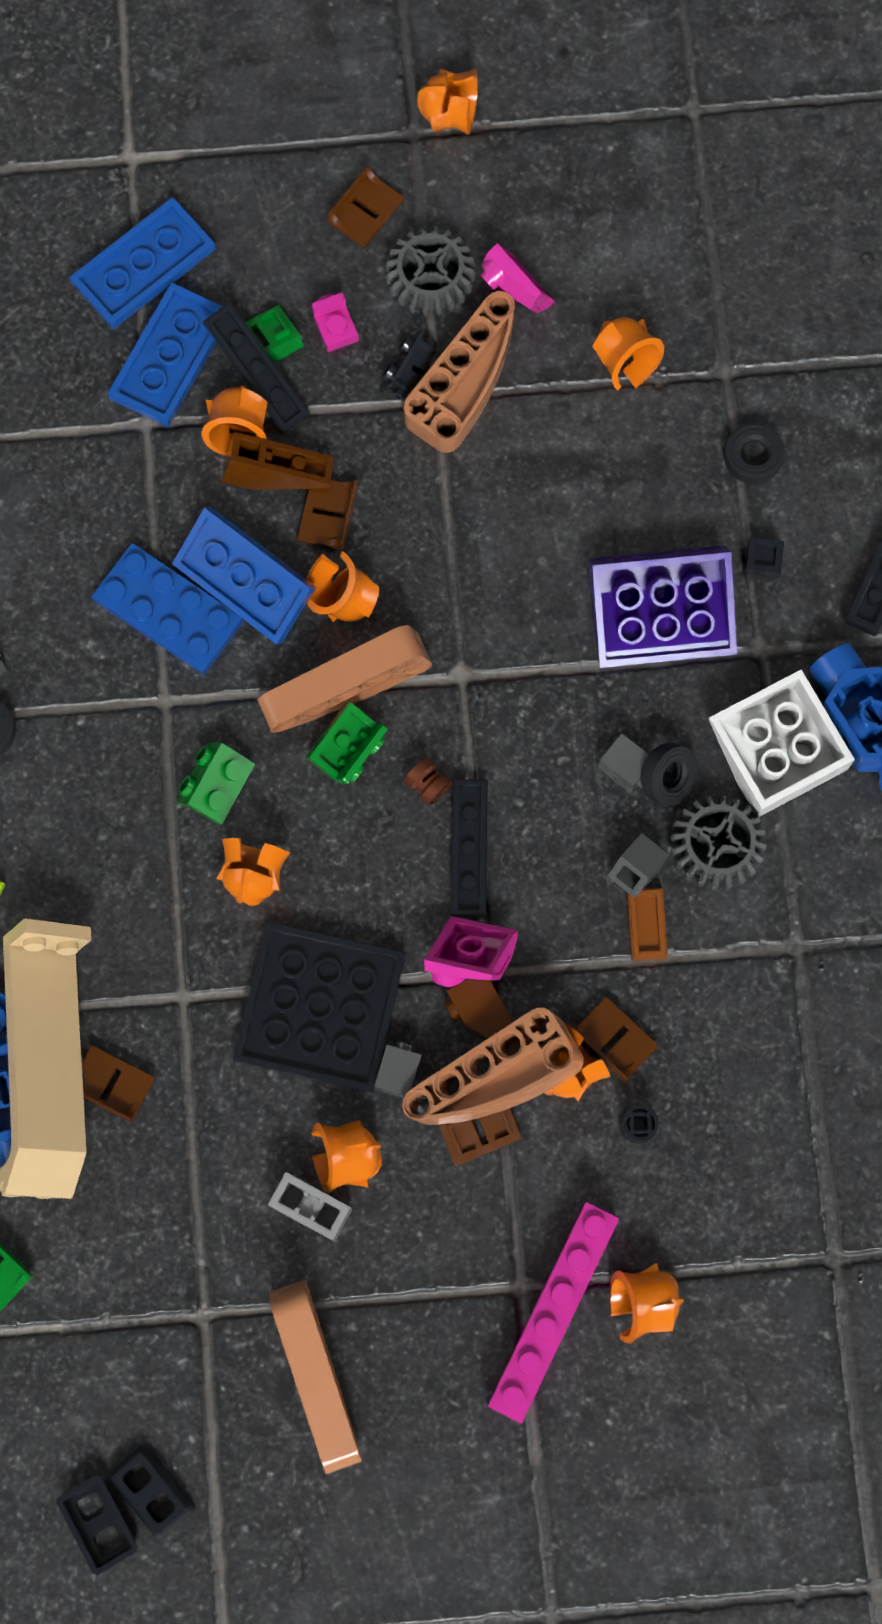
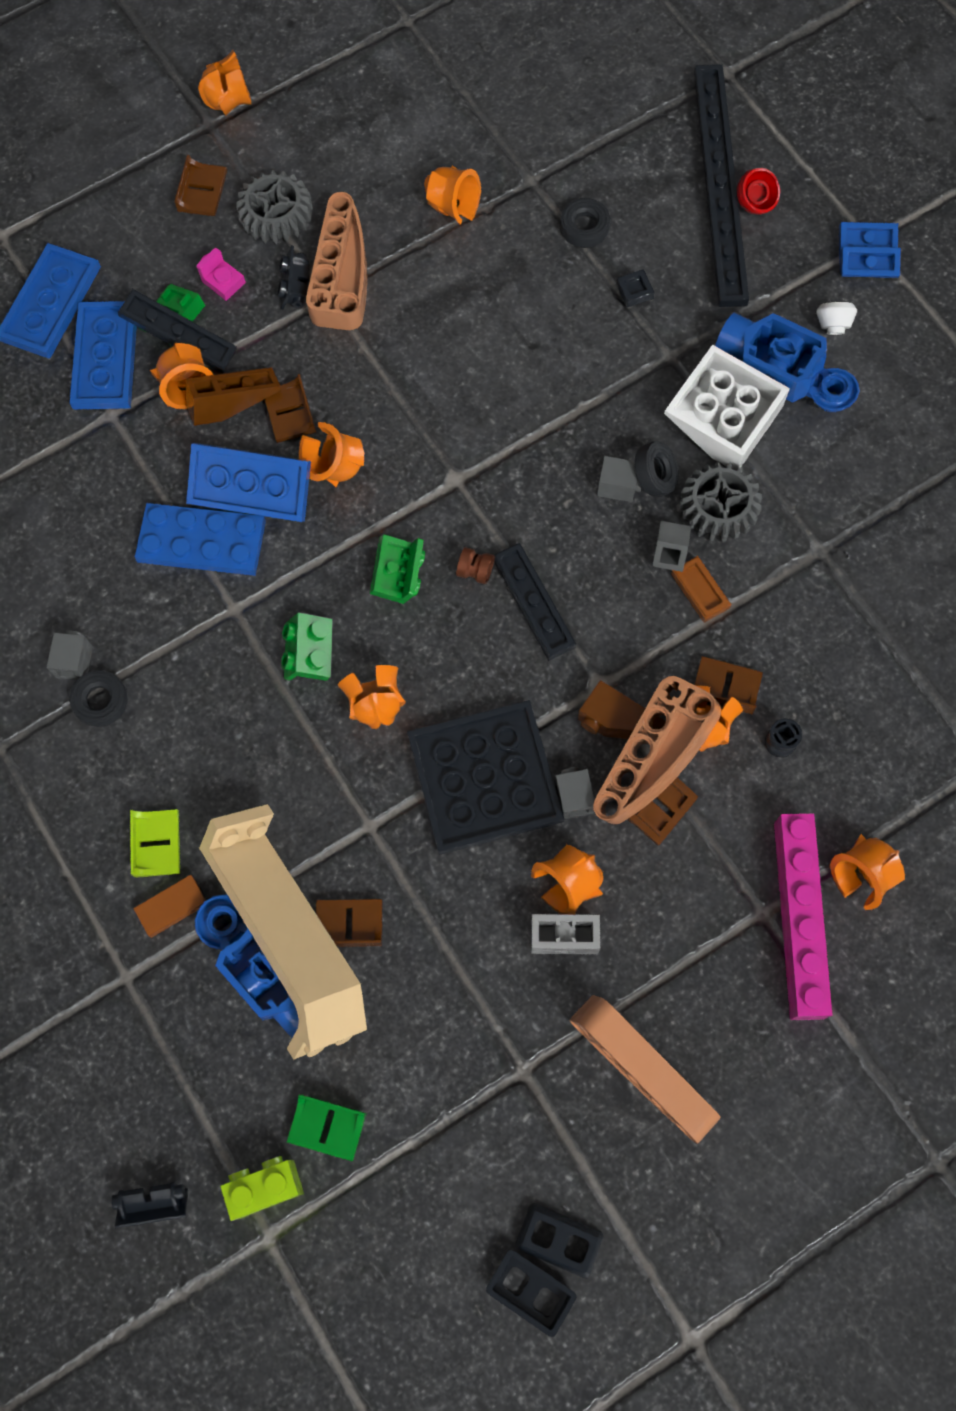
camera: 25 degrees left, 5 degrees down
(346, 678) = (373, 514): nougat beam -> none
(470, 952) = (581, 671): dark pink slope -> none
(509, 275) = (335, 176): dark pink slope -> none
(663, 606) = (581, 356): dark purple slope -> none

